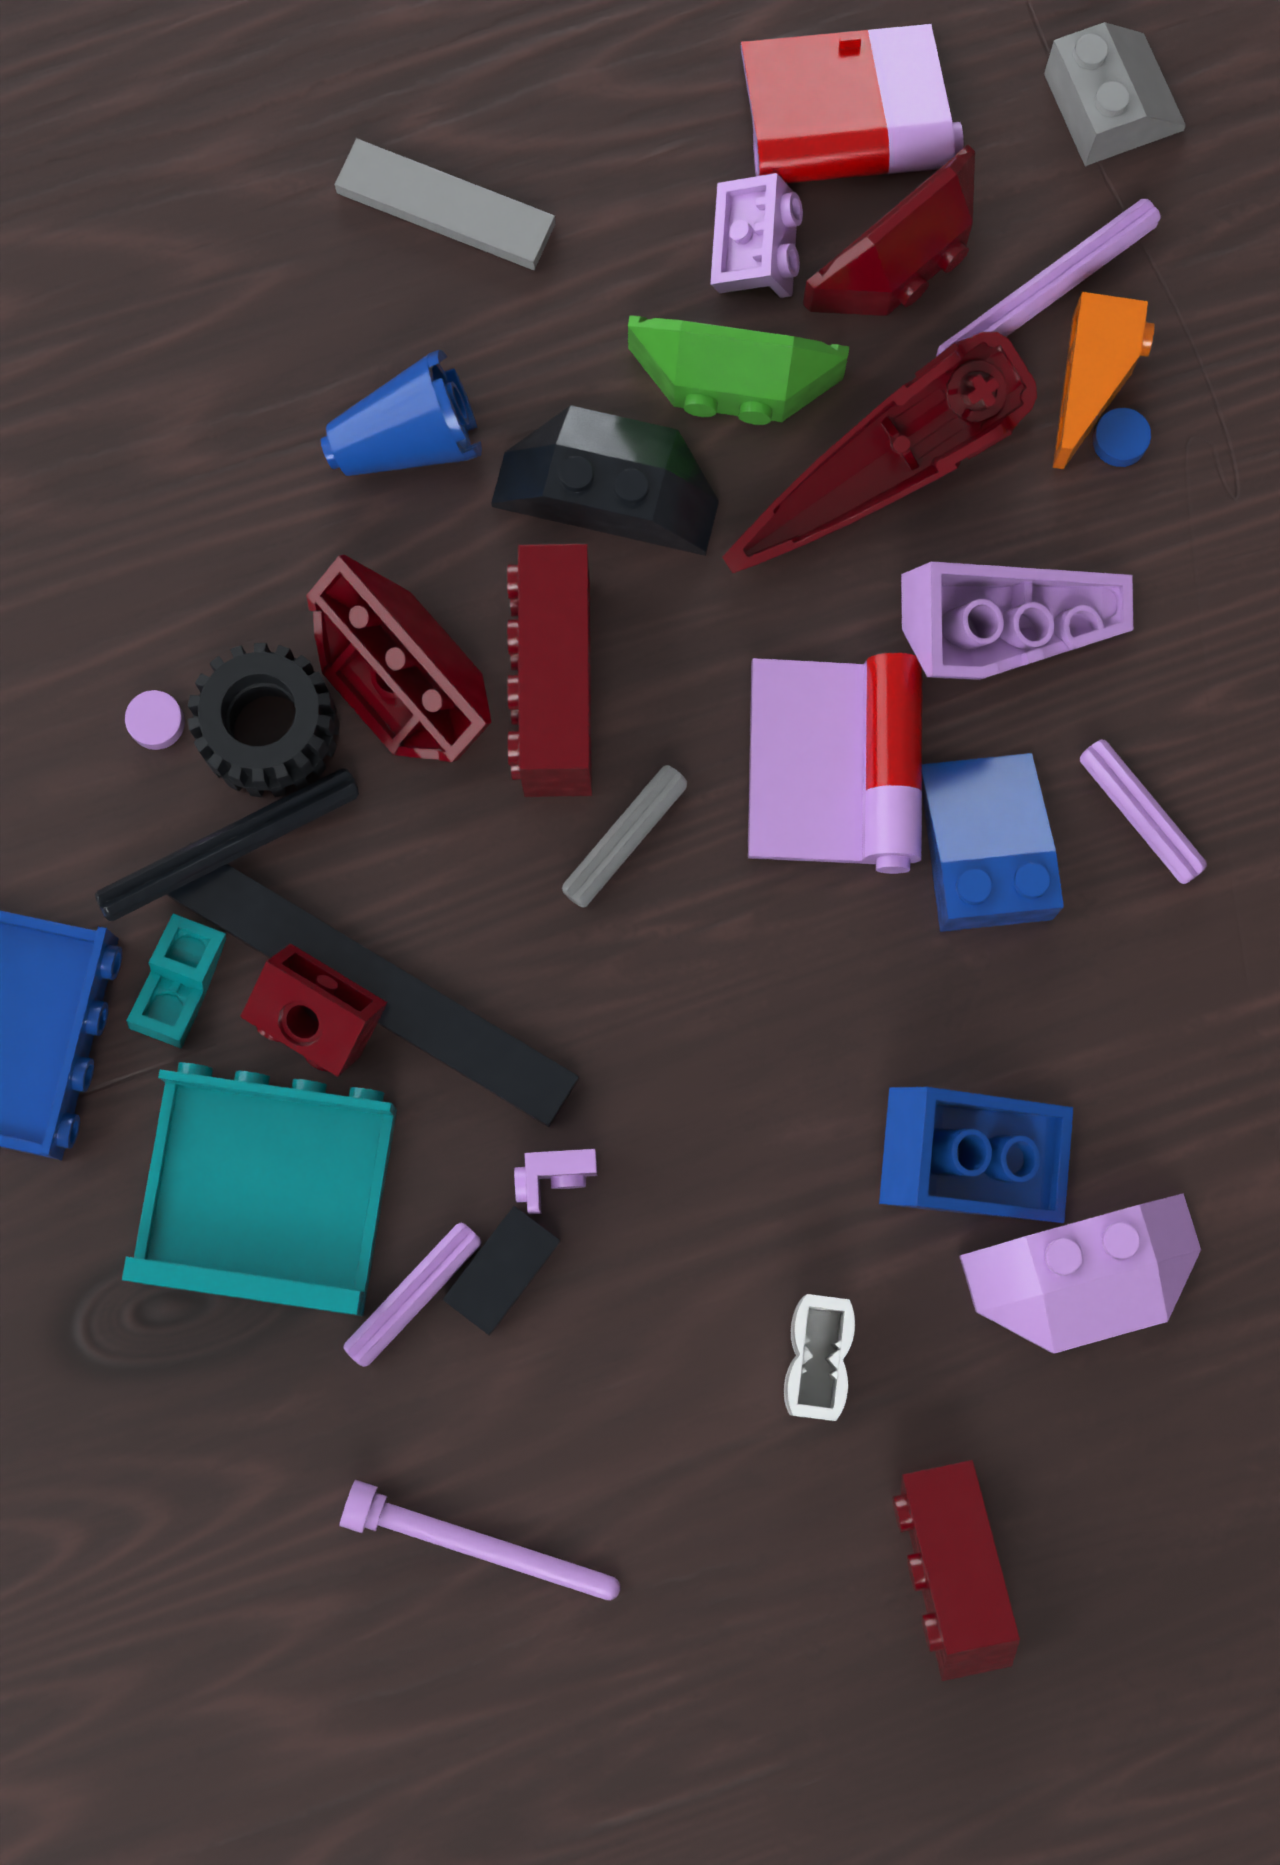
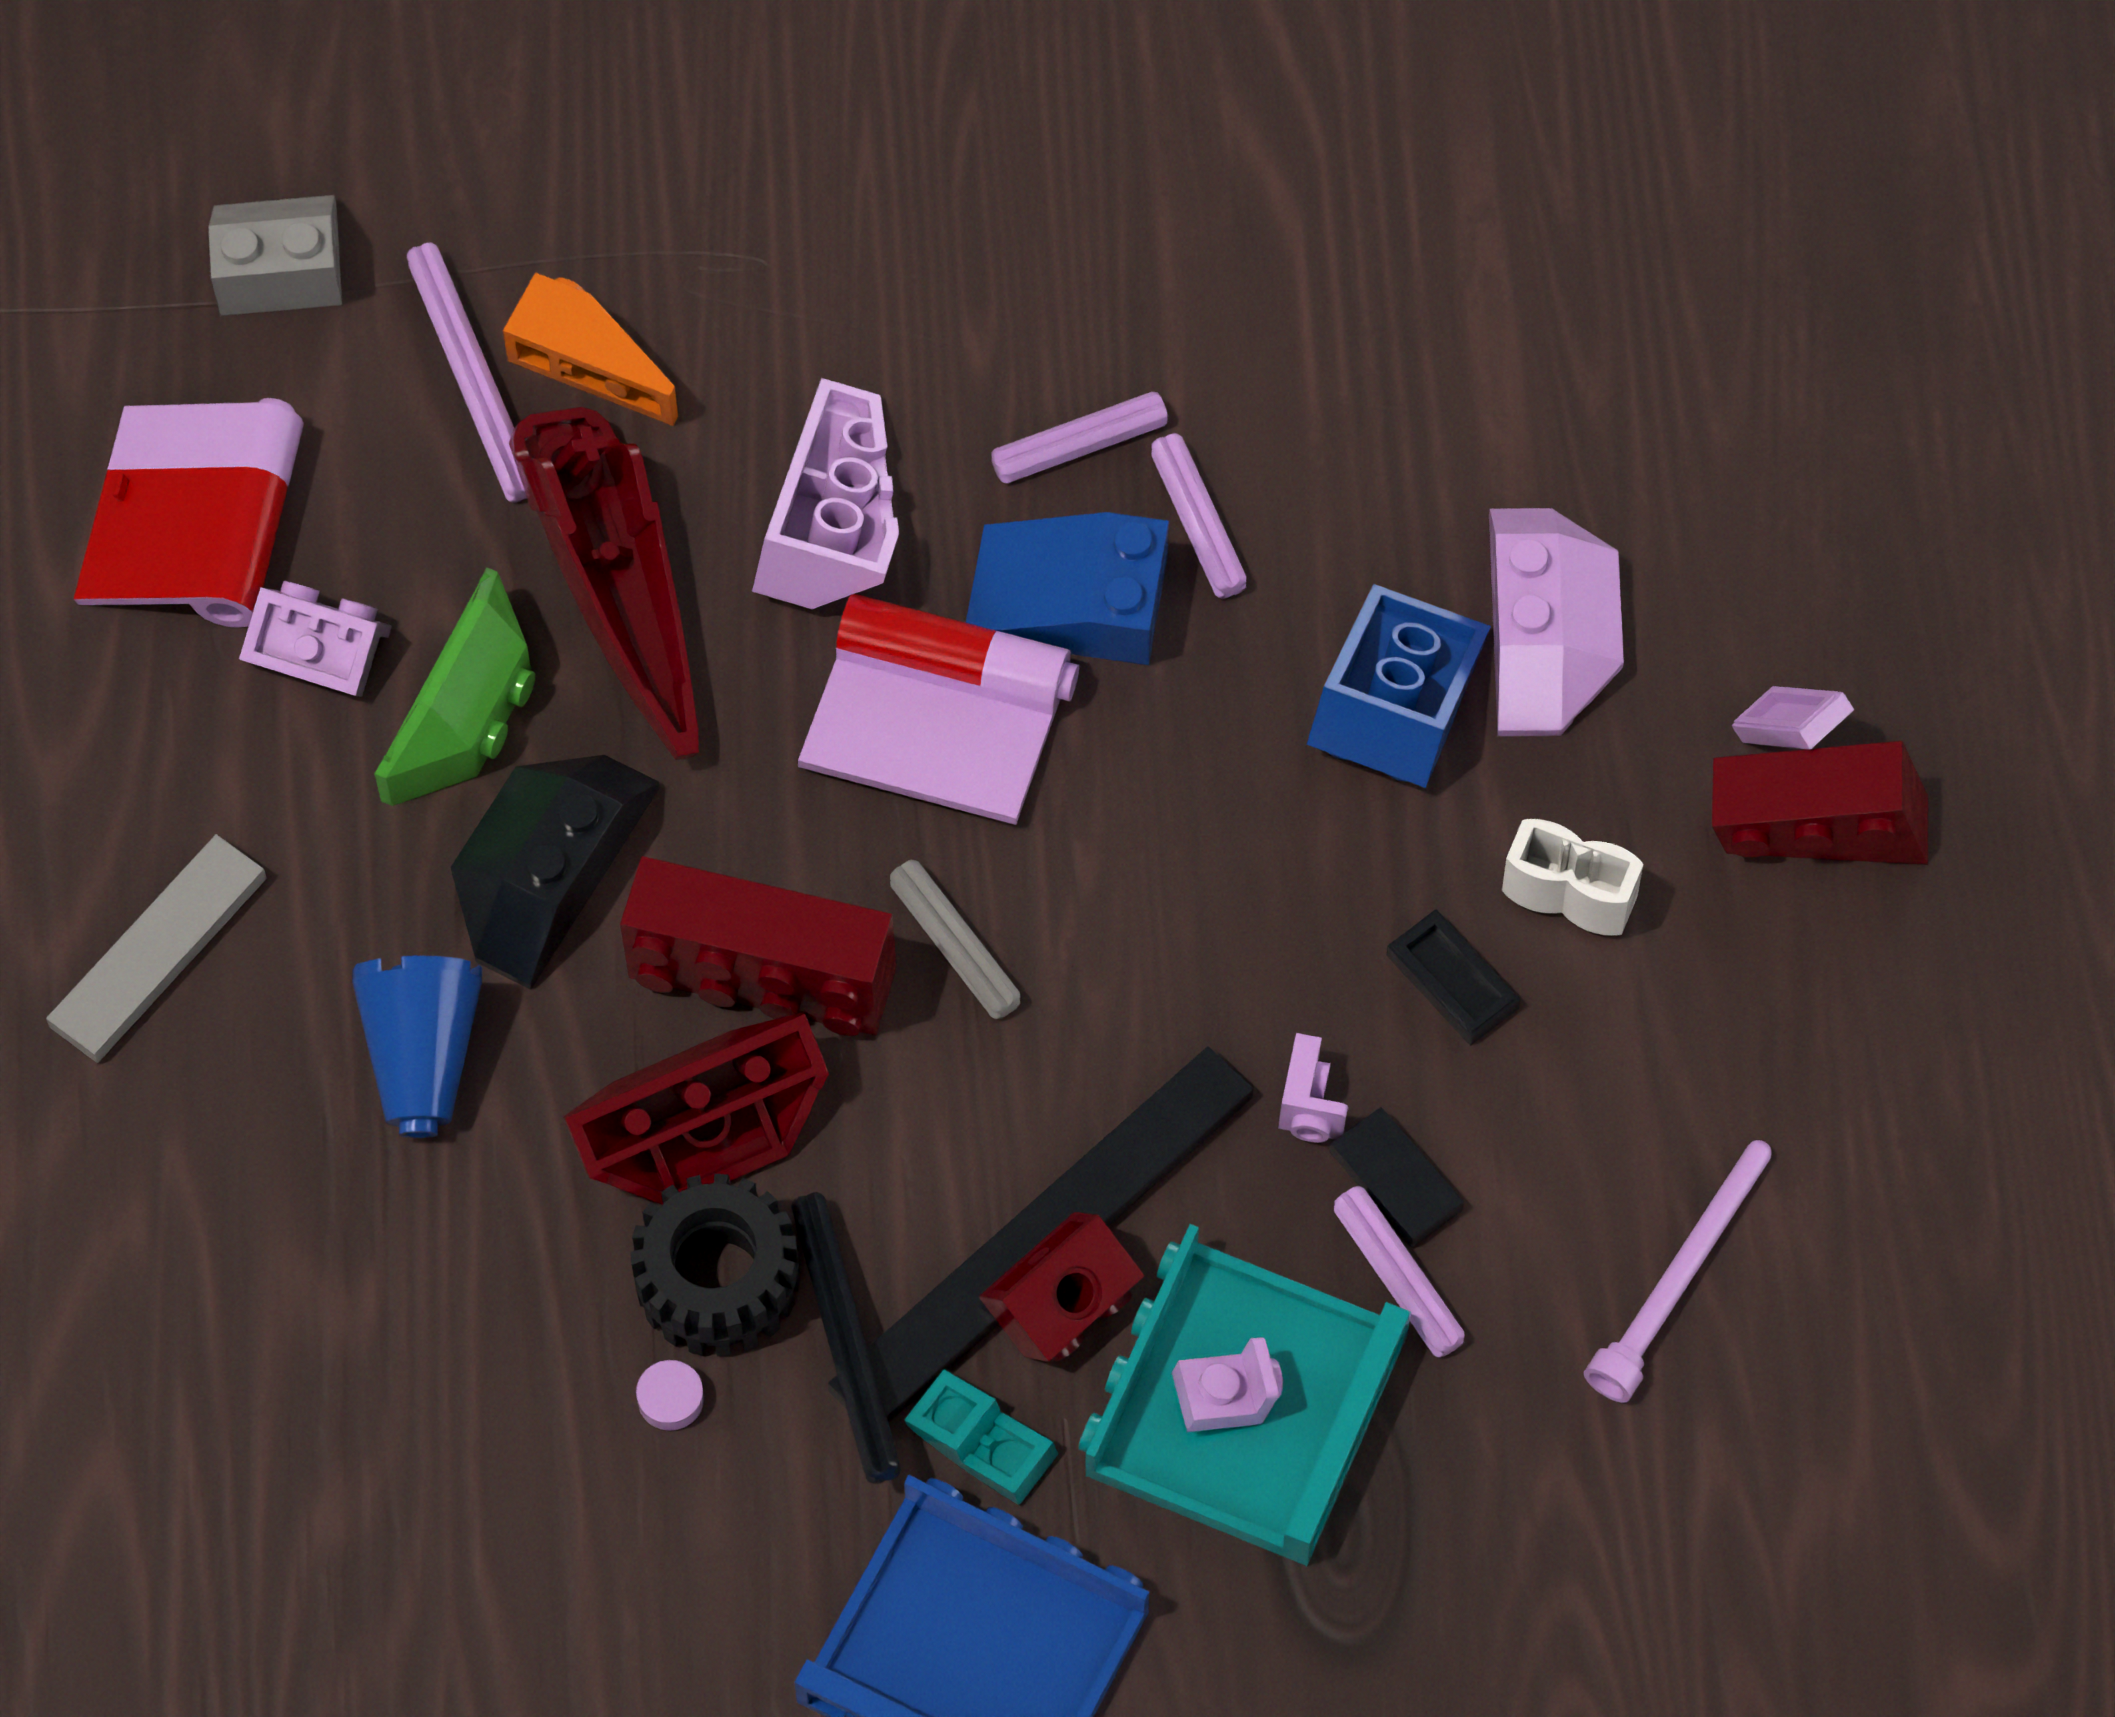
camera: 75 degrees left, 15 degrees down
(257, 1174) = (1228, 1388): none -> lavender bracket
(707, 1273) = (1453, 977): none -> black tile
(903, 248) = (380, 489): dark red wedge -> none
(1036, 1525) = (1792, 717): none -> lavender tile
(1095, 935) = (1198, 516): none -> lavender axle
(1121, 437) = (668, 345): blue tile -> none

